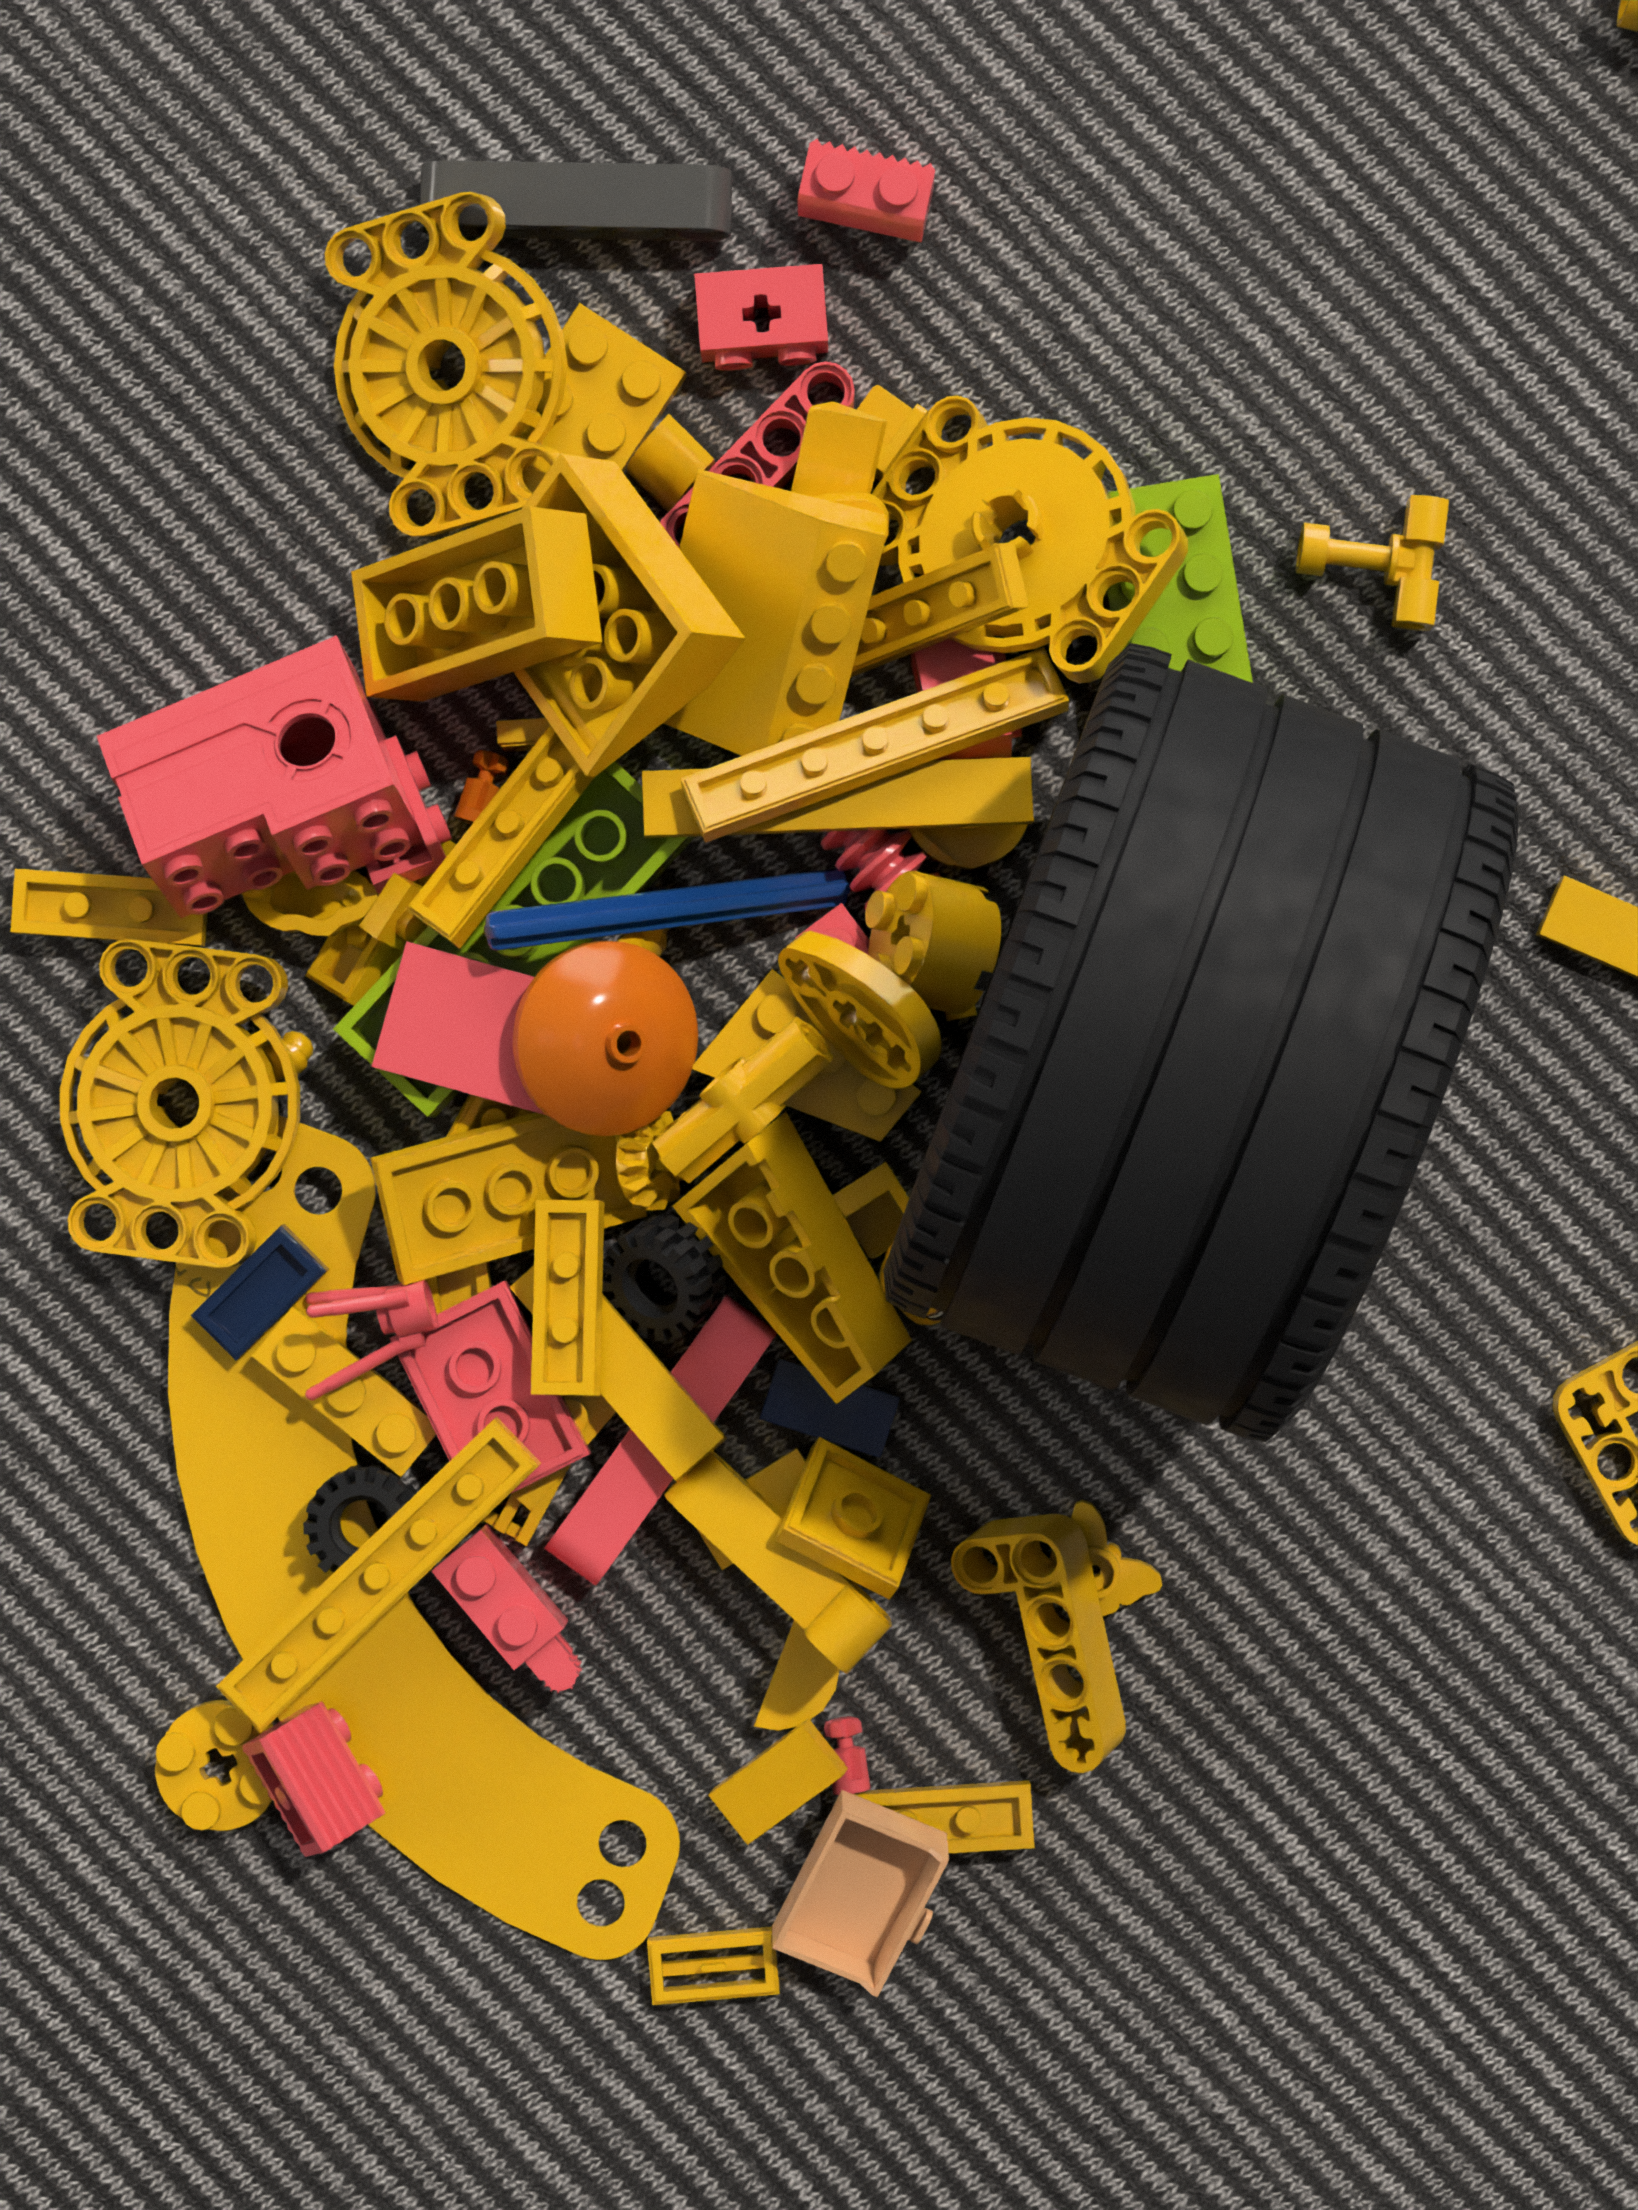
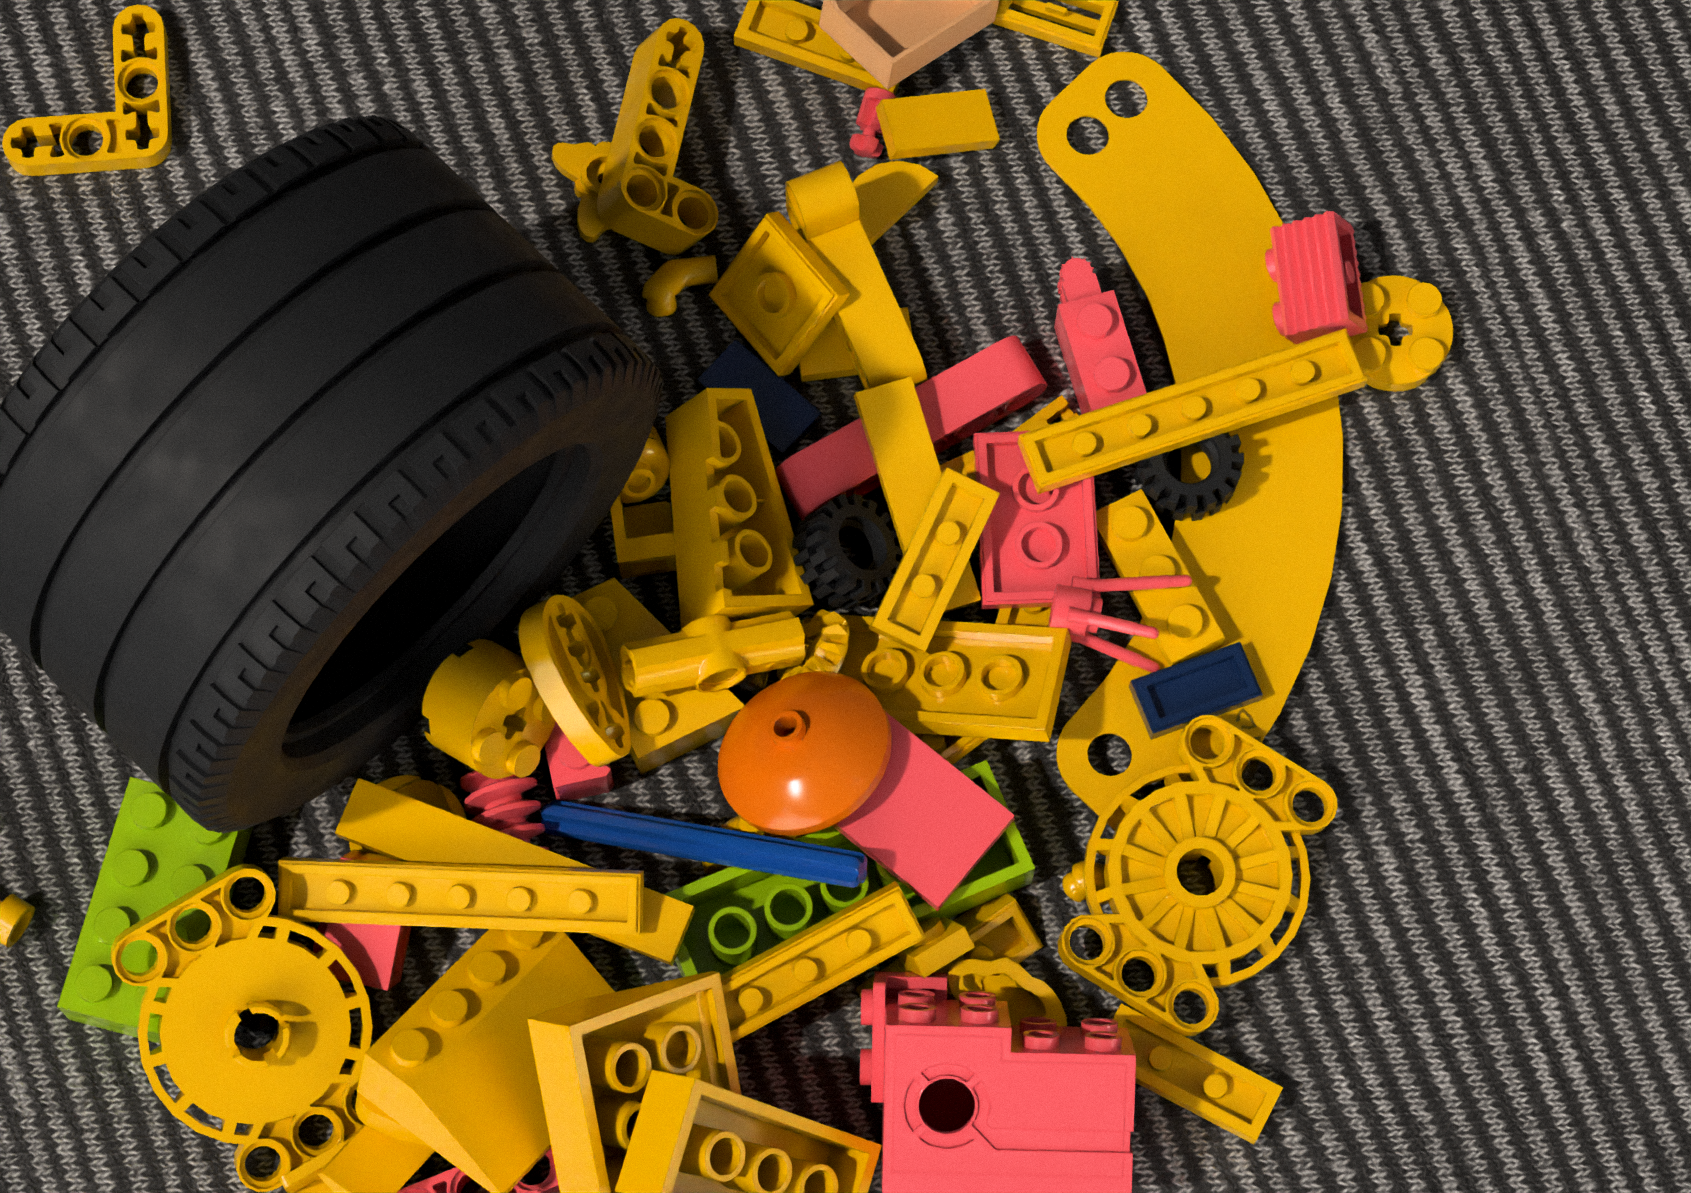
camera: 160 degrees left, 15 degrees down
(480, 790) = (821, 1031): orange piece -> none
(520, 734) = (759, 1060): yellow tile -> none
(941, 606) = (338, 984): yellow tile -> none
(974, 1495) = (672, 278): none -> yellow arm

